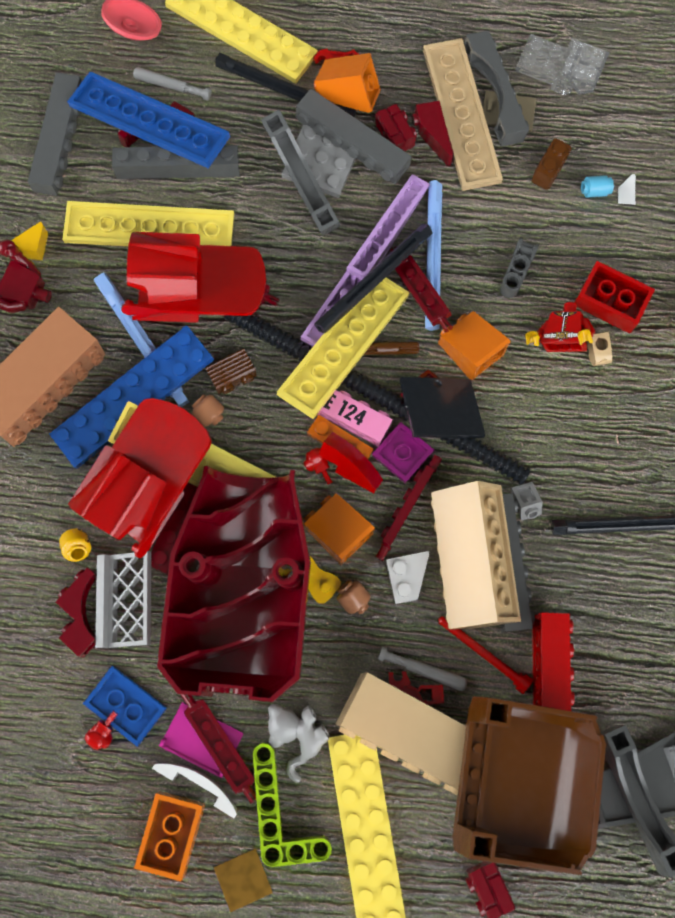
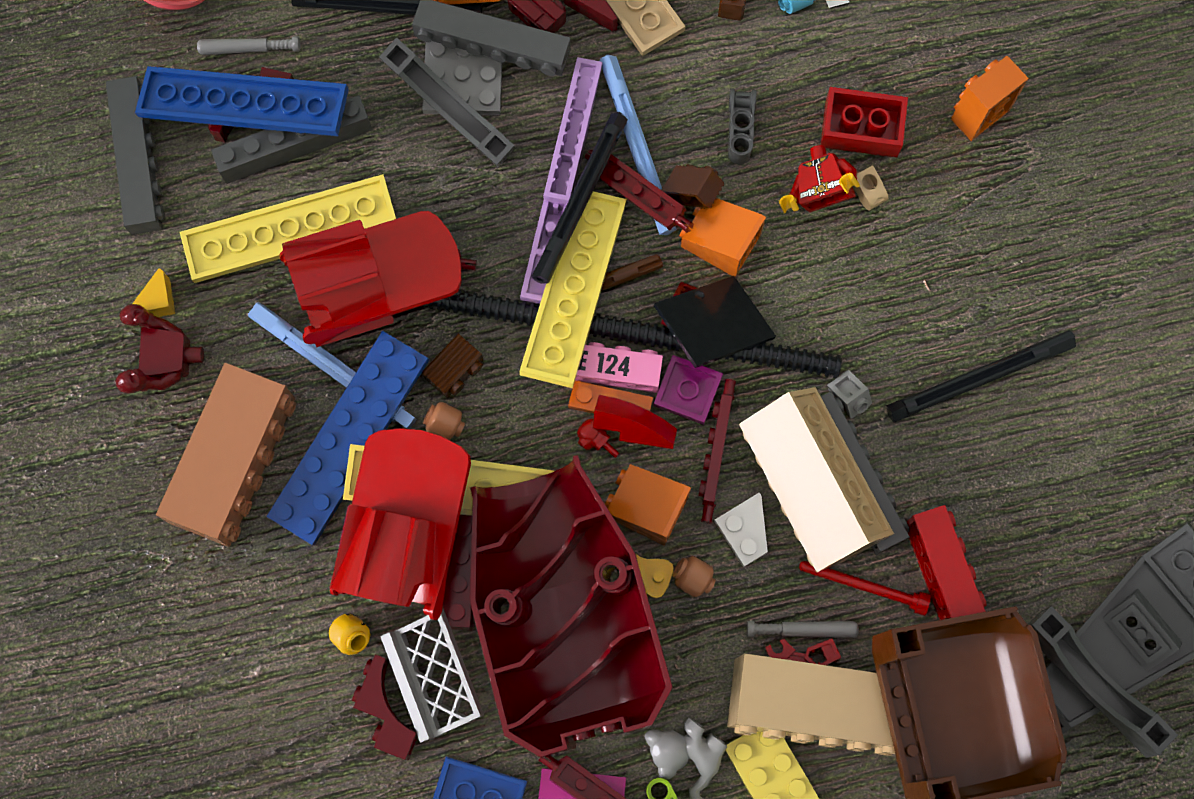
camera: 15 degrees left, 0 degrees up
(464, 299) = (693, 185): none -> reddish brown brick

